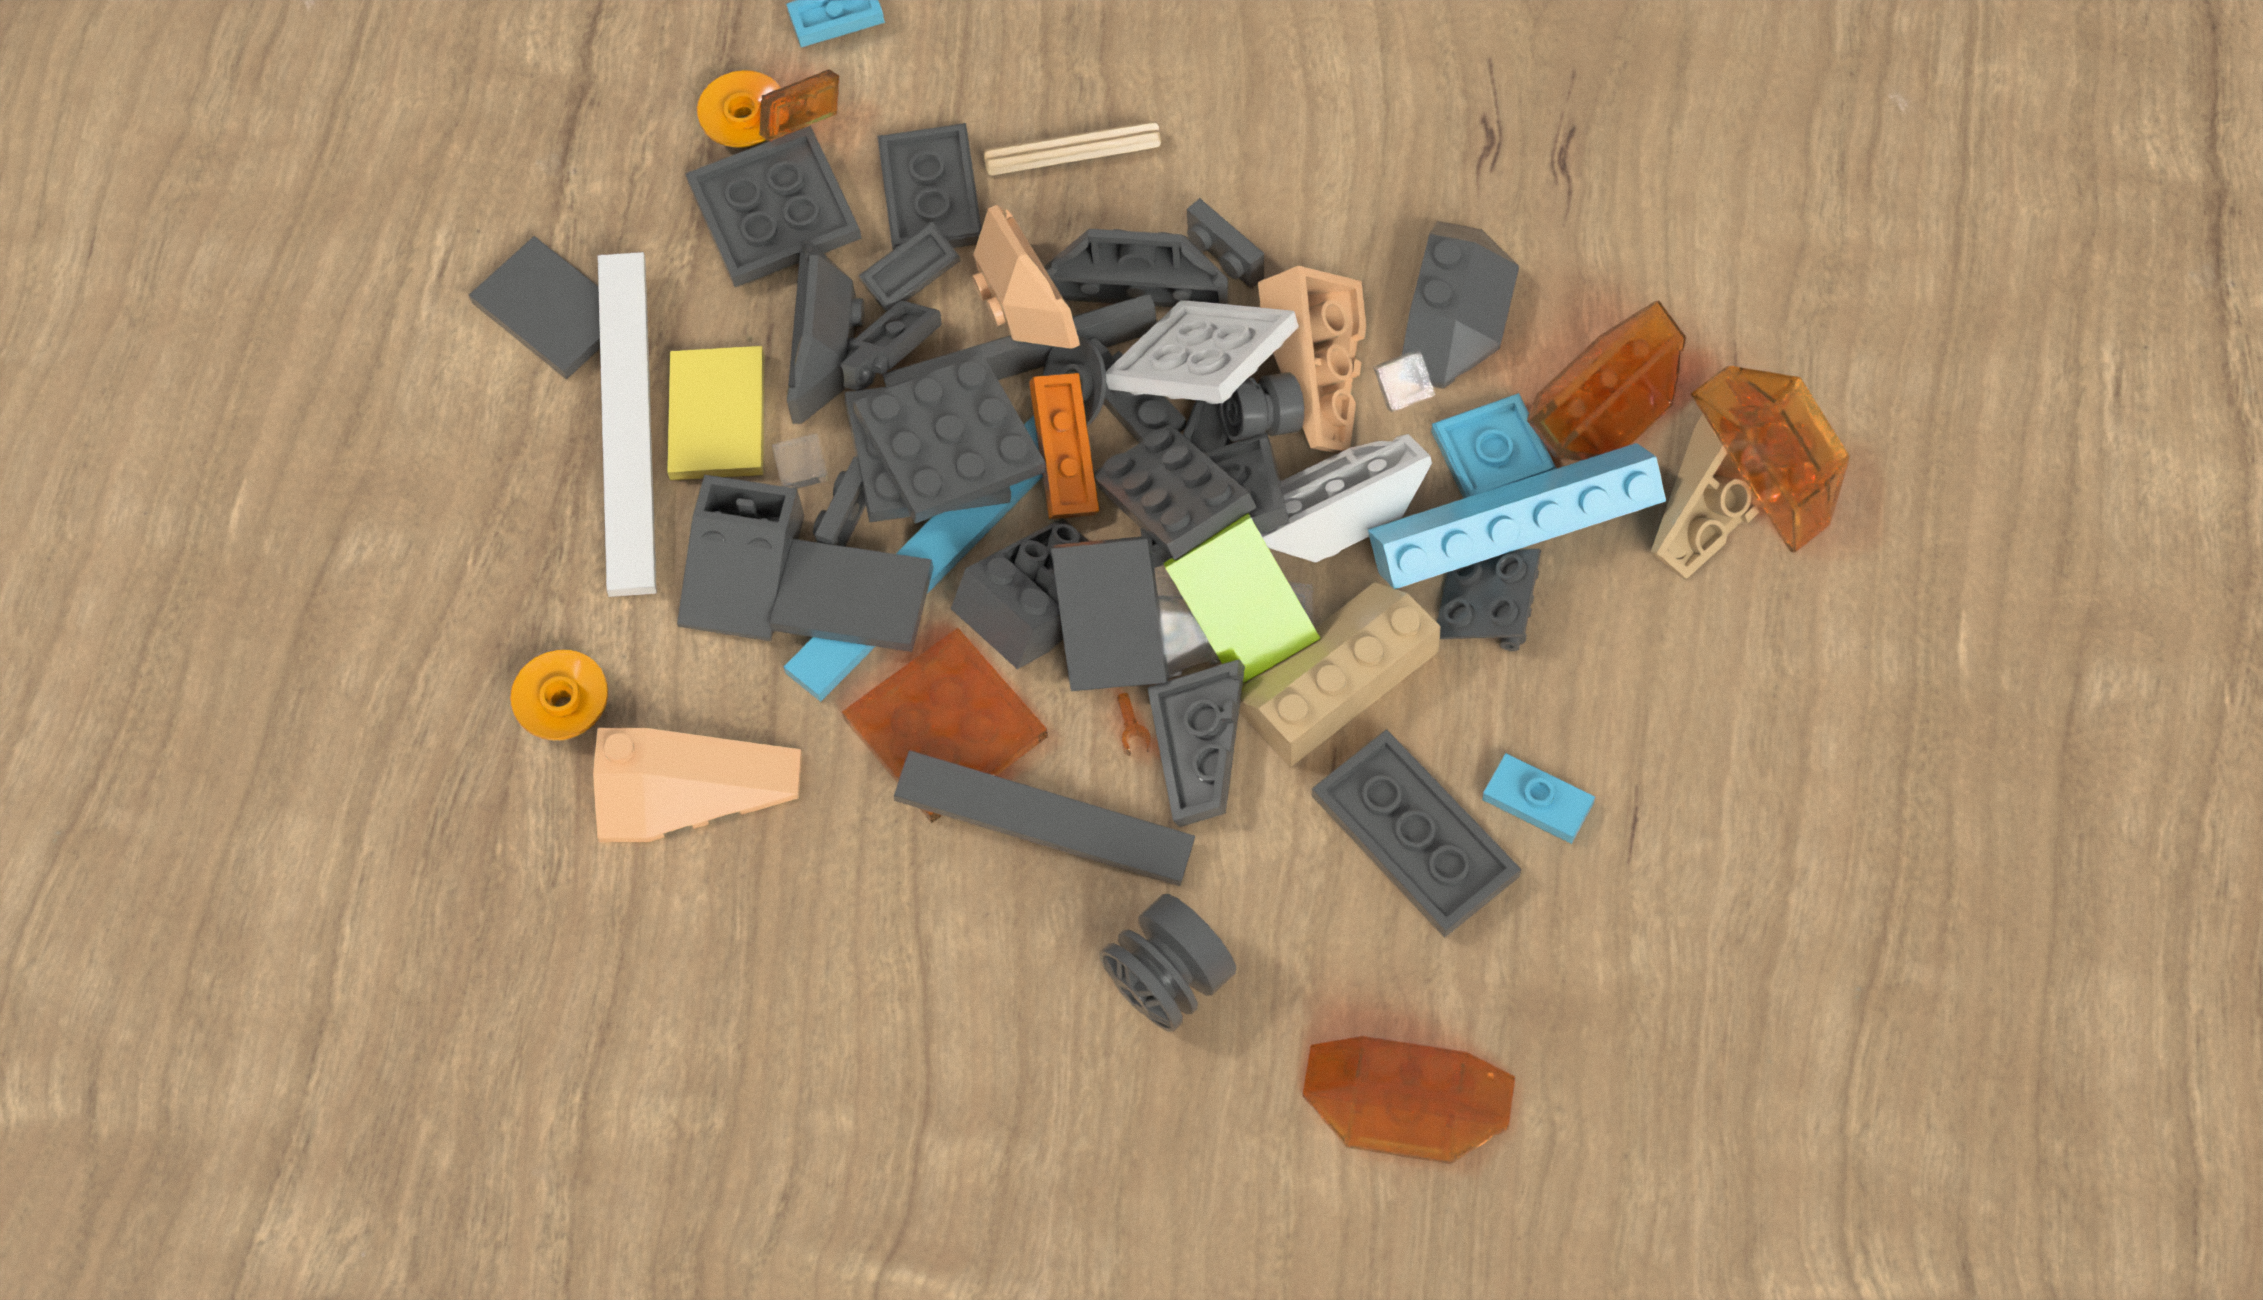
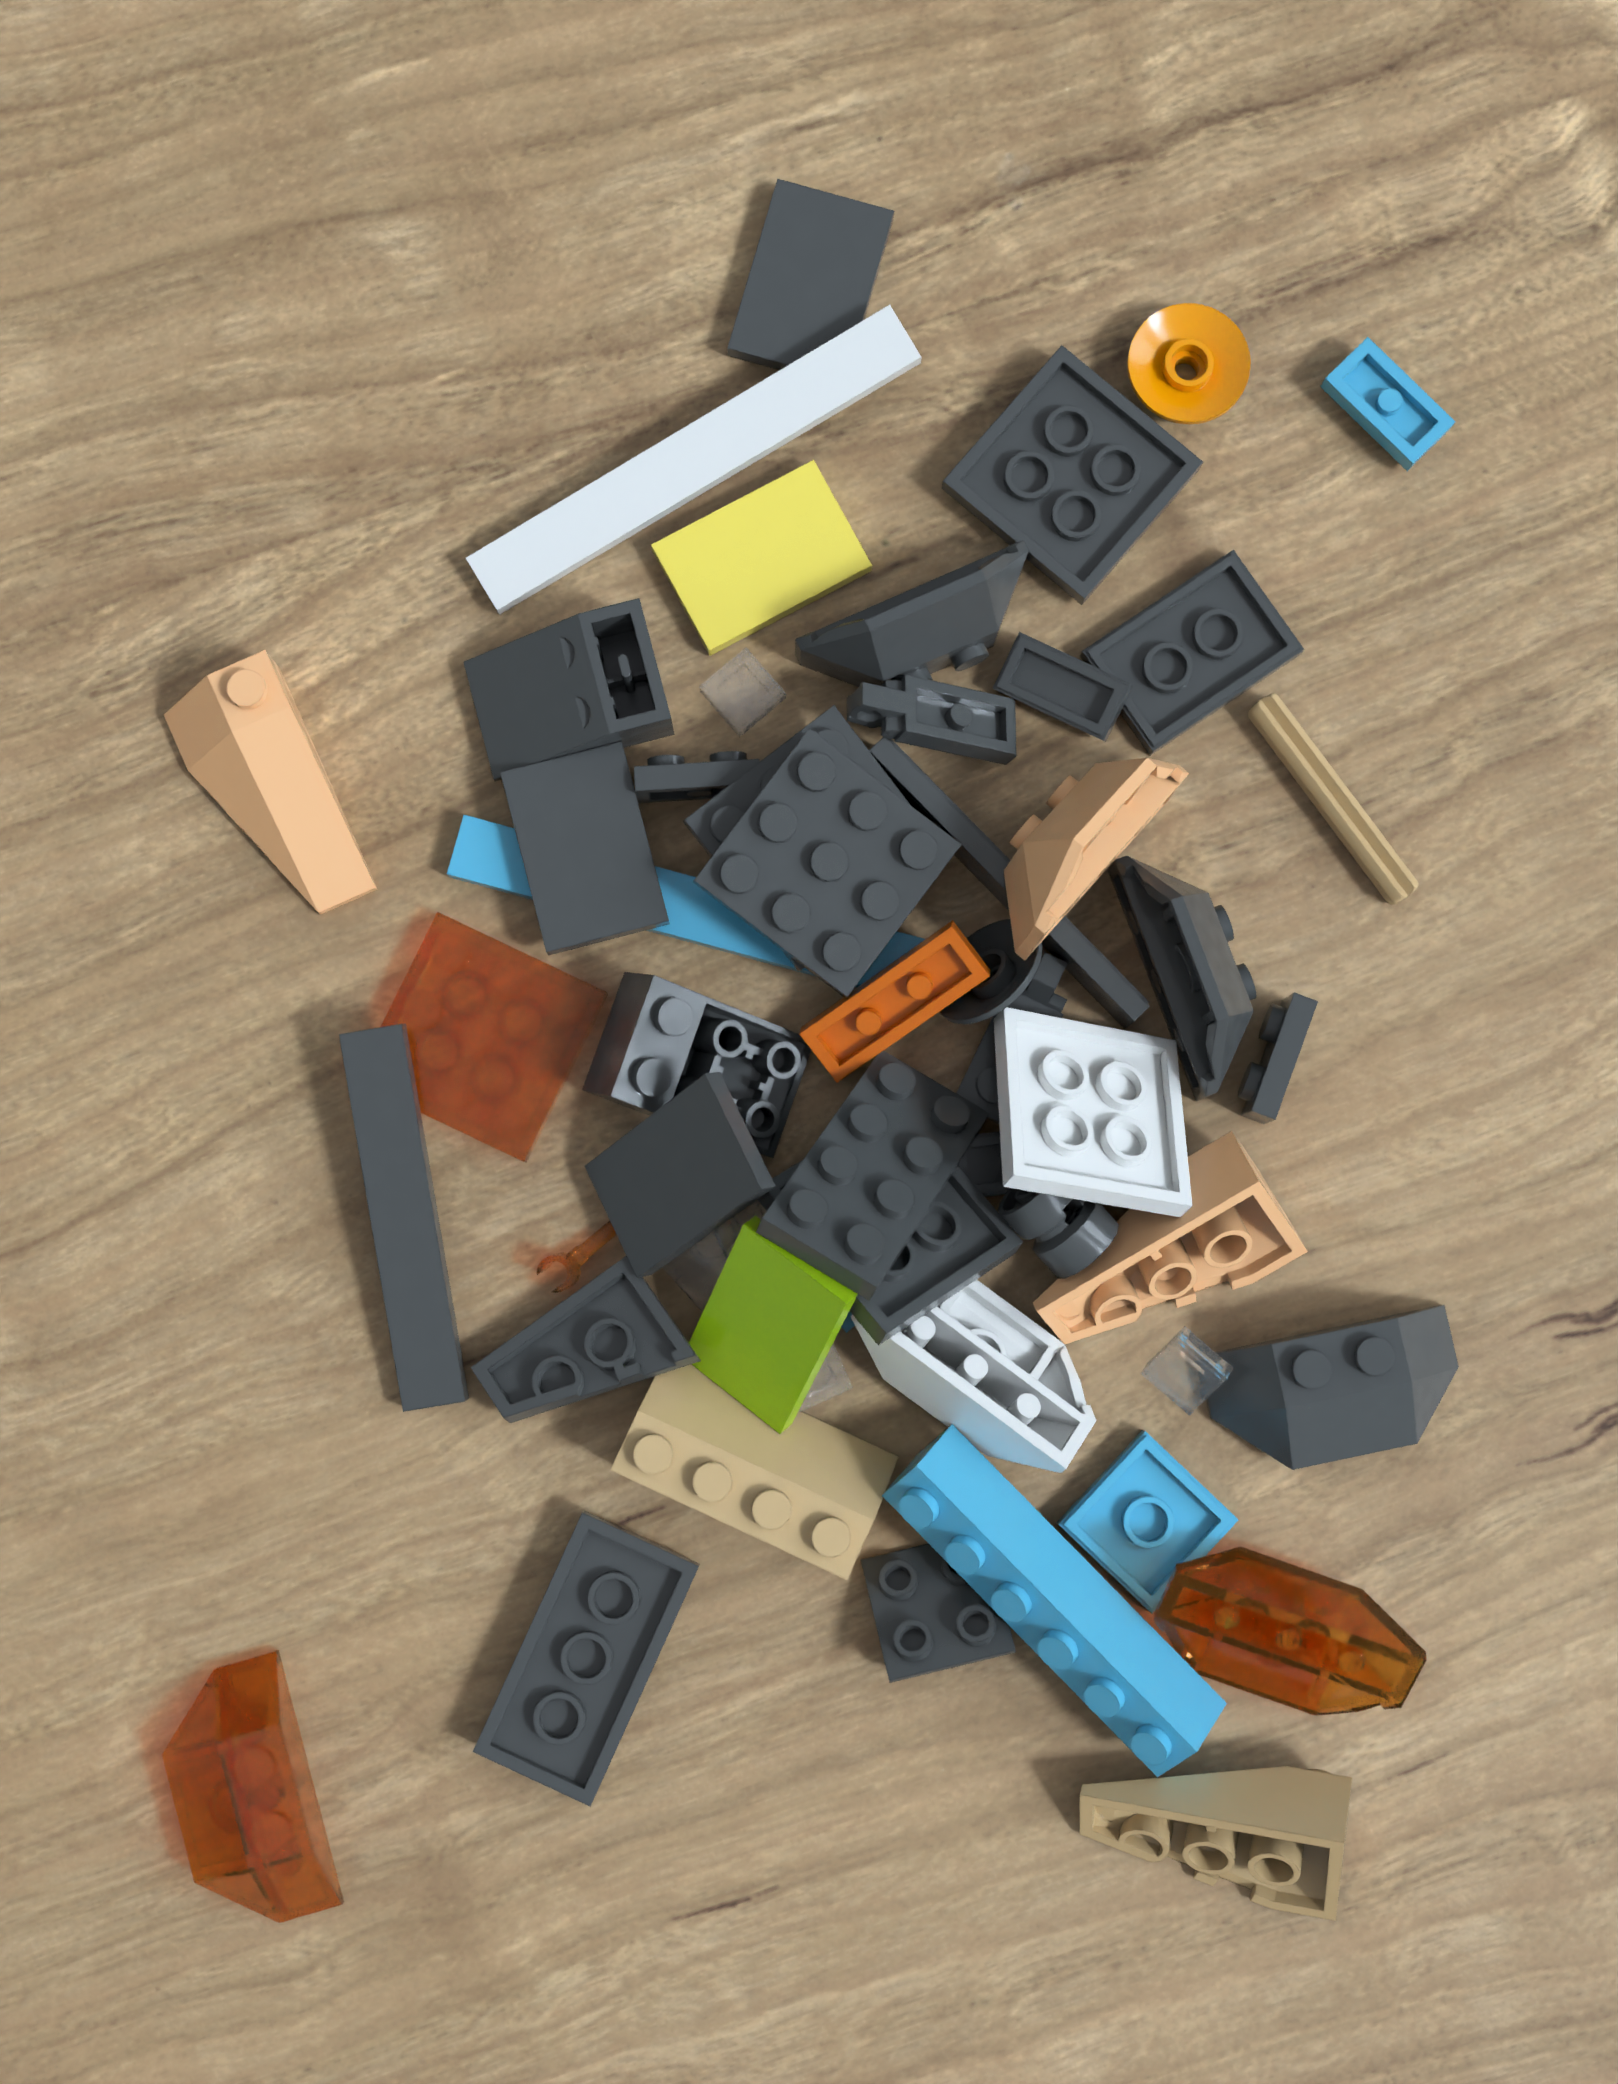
camera: 55 degrees right, 20 degrees up
(551, 678) = (301, 549): light orange dish -> none
(799, 105) = (1219, 433): clear orange plate -> none
(1176, 955) = (263, 1449): dark grey wheel -> none
(1538, 798) = (701, 1781): medium azure plate -> none
(1778, 446) = (1290, 1893): clear orange wedge -> none

